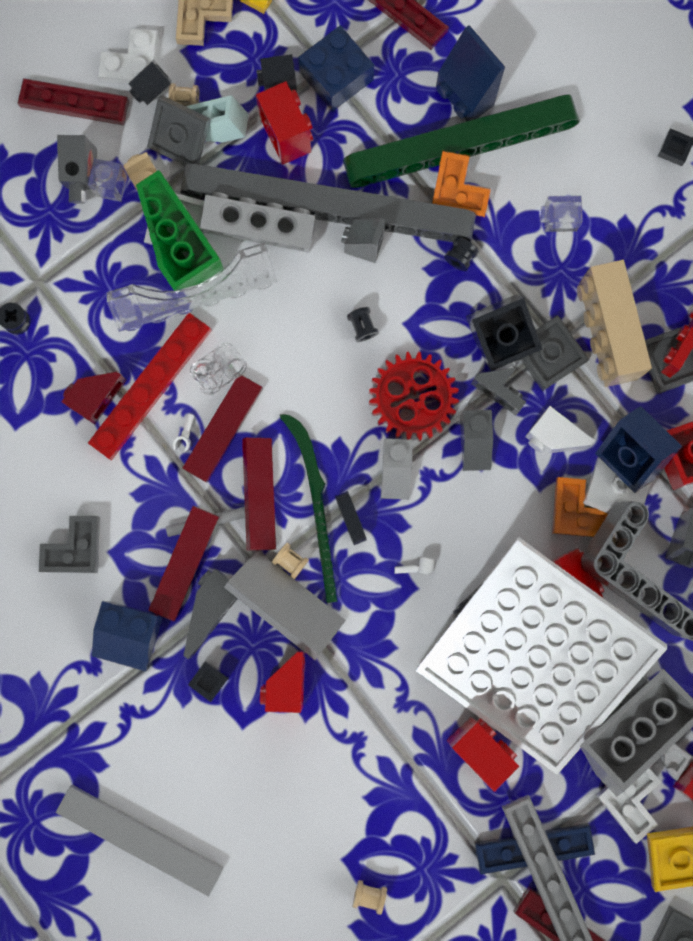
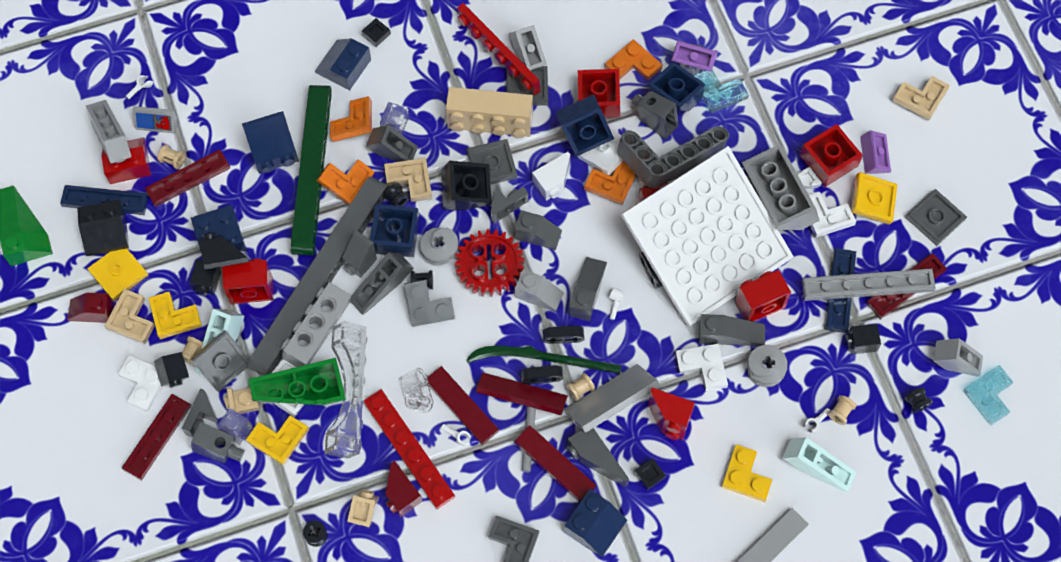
camera: 70 degrees left, 15 degrees down
(61, 360) = (363, 508): none -> tan bracket
(104, 236) = (281, 444): none -> yellow plate
(118, 136) = (200, 409): none -> dark grey slope
(213, 55) = (172, 321): none -> yellow plate
(244, 791) = (741, 479): none -> yellow plate
(288, 888) = (818, 463): none -> light aqua slope
(290, 510) = (542, 374): none -> black beam
(300, 73) = (219, 251): none -> black slope
(325, 339) = (422, 309): none -> plate
(344, 278) = (381, 281): none -> dark grey slope
(346, 867) = (817, 420): none -> white hand
(380, 704) = (704, 359): none -> white plate
(402, 322) = (442, 254): none -> light grey piece
(410, 789) = (758, 370): none -> light grey piece
(412, 268) = (395, 229): none -> dark blue brick
(424, 527) = (587, 289): none -> dark grey slope
(427, 725) = (730, 331): none -> dark grey slope
(474, 899) = (863, 339): none -> black brick
(499, 265) = (411, 172): none -> tan plate
(527, 223) = (391, 144): none -> dark grey slope
(542, 171) = (356, 124): none -> orange plate
(618, 126) = (345, 62): none -> dark blue slope

